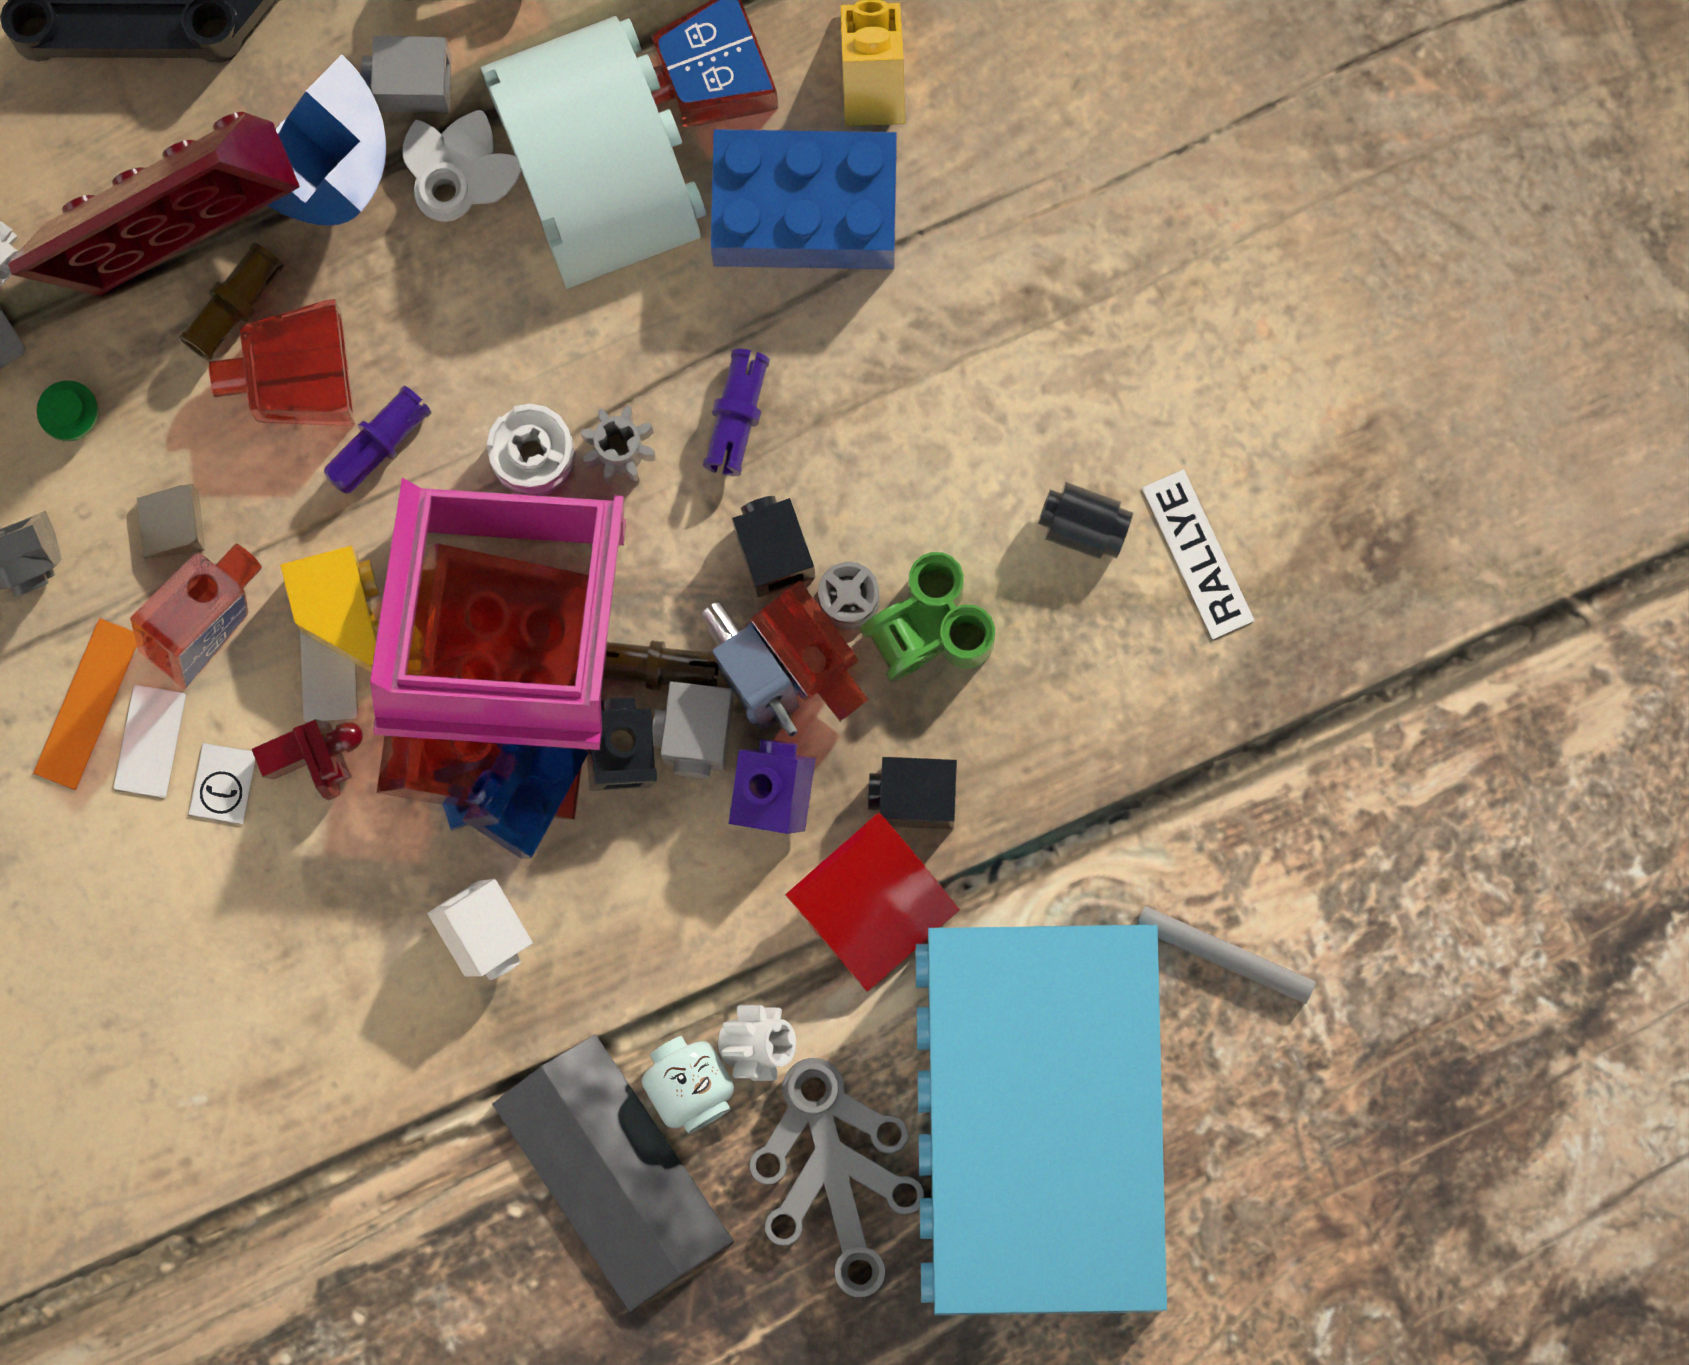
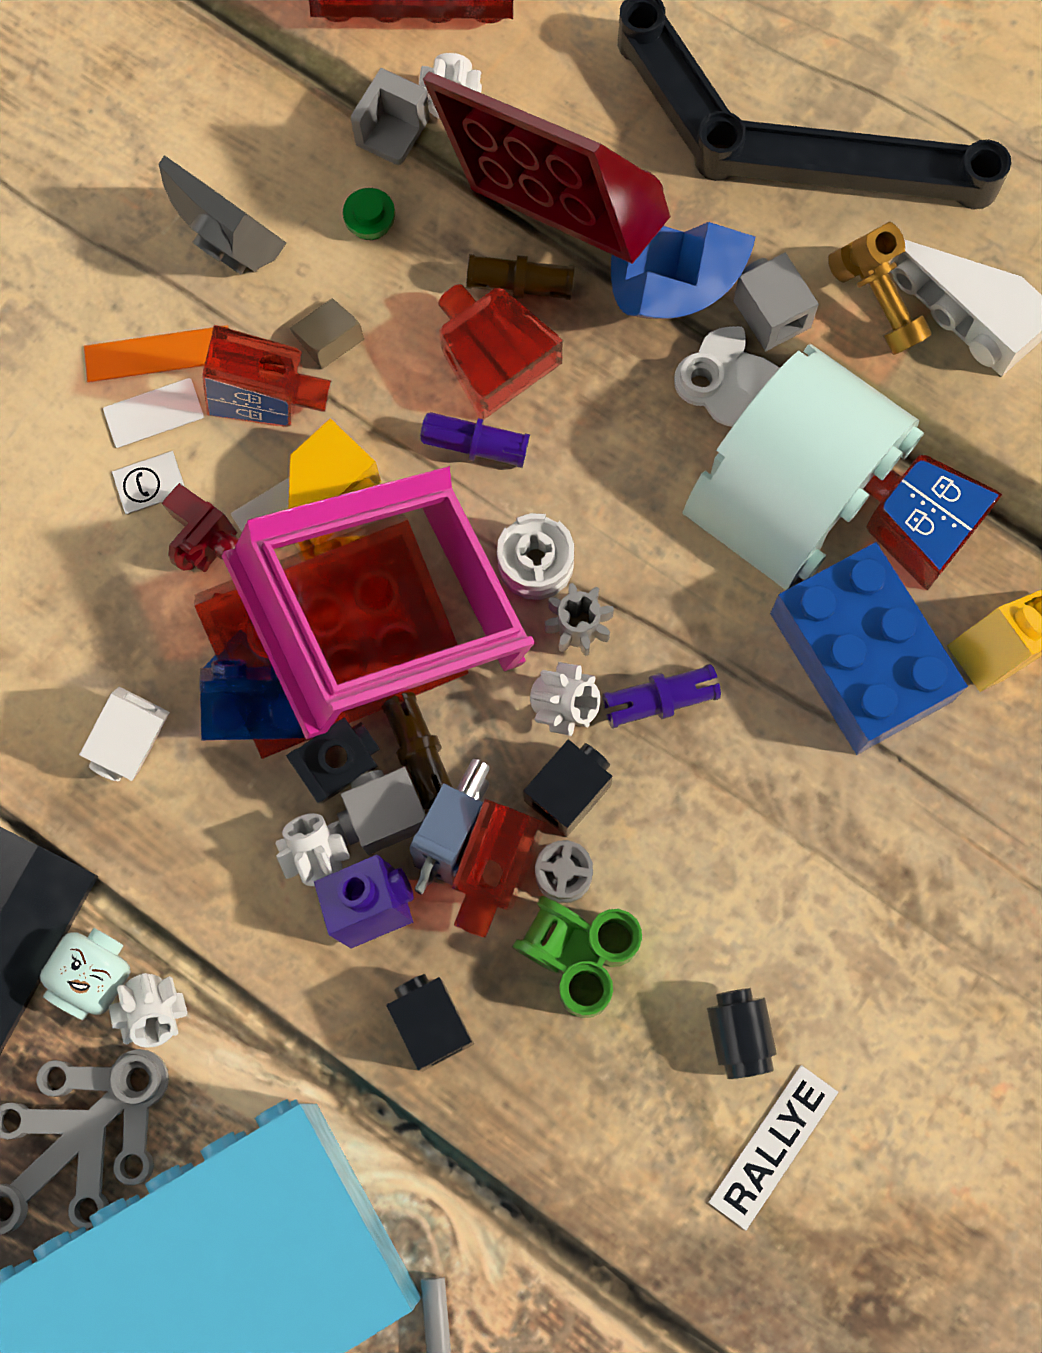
camera: 60 degrees right, 5 degrees down
(688, 501) = (565, 698): none -> white gear
(694, 812) = (311, 848): none -> white gear
(872, 901) = (315, 1039): red slope -> none

